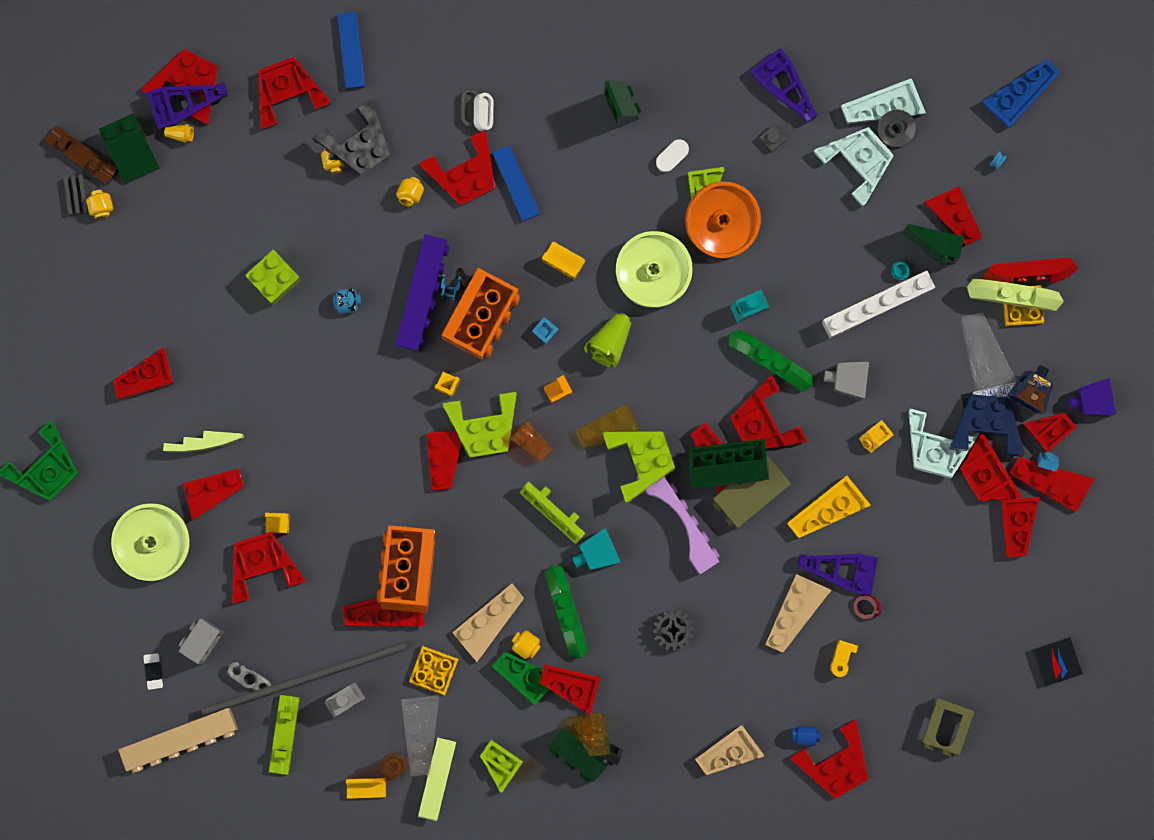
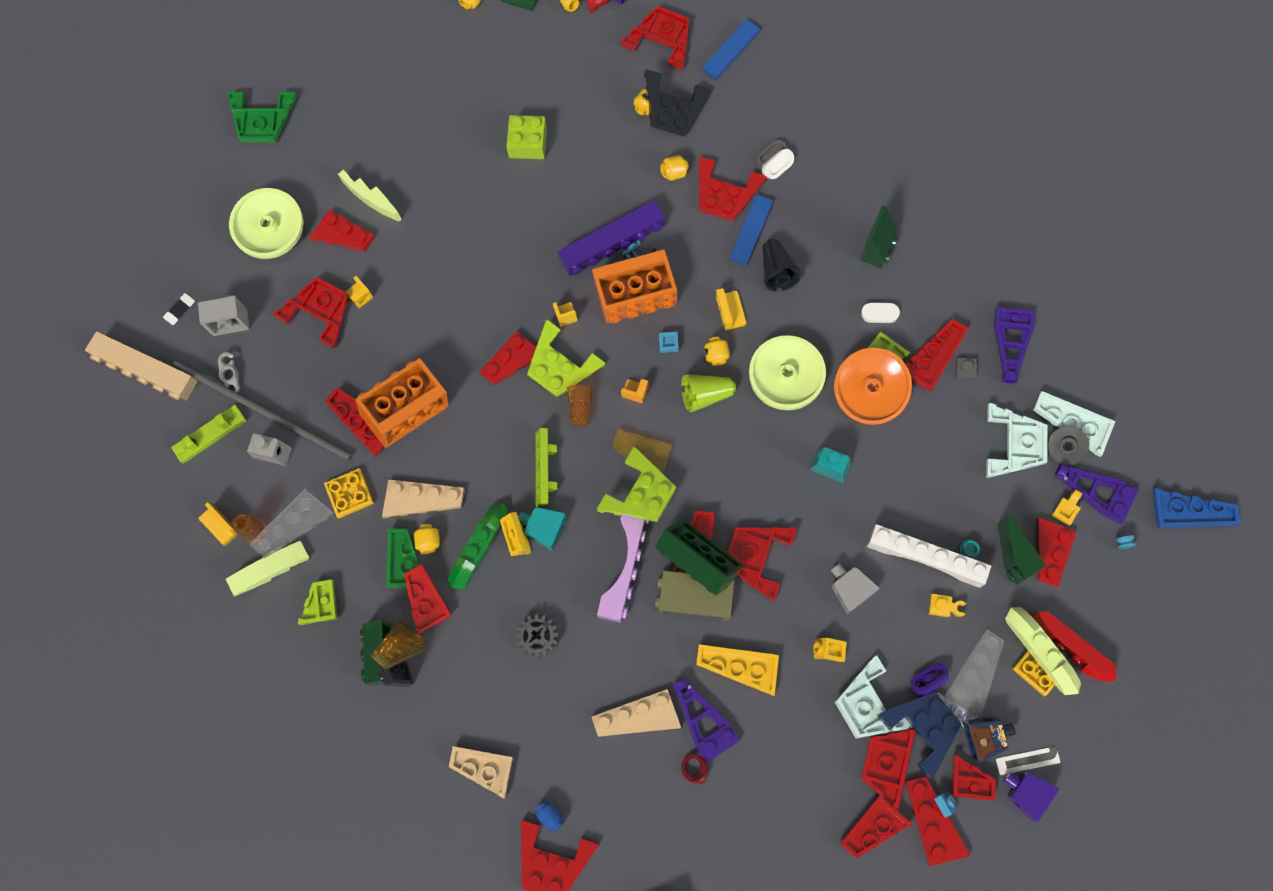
camera: 60 degrees right, 10 degrees down
(146, 377) = (382, 124): red wing -> none
(346, 300) = (557, 196): dark azure head -> none
(565, 193) = (778, 267): none -> black cone
(585, 578) = (515, 535): none -> yellow panel
(587, 303) = (716, 351): none -> yellow head
(743, 155) = (933, 358): none -> red wing
(770, 360) = (807, 518): green brick -> none
(841, 656) = (628, 790): yellow leg -> none
(920, 329) = (942, 606): none -> yellow plate
(938, 176) = (1067, 509): none -> yellow plate
(958, 389) = (929, 679): none -> dark purple plate
(967, 133) = (1120, 501): none -> dark purple plate
(1072, 378) = (1028, 760): none -> sticker

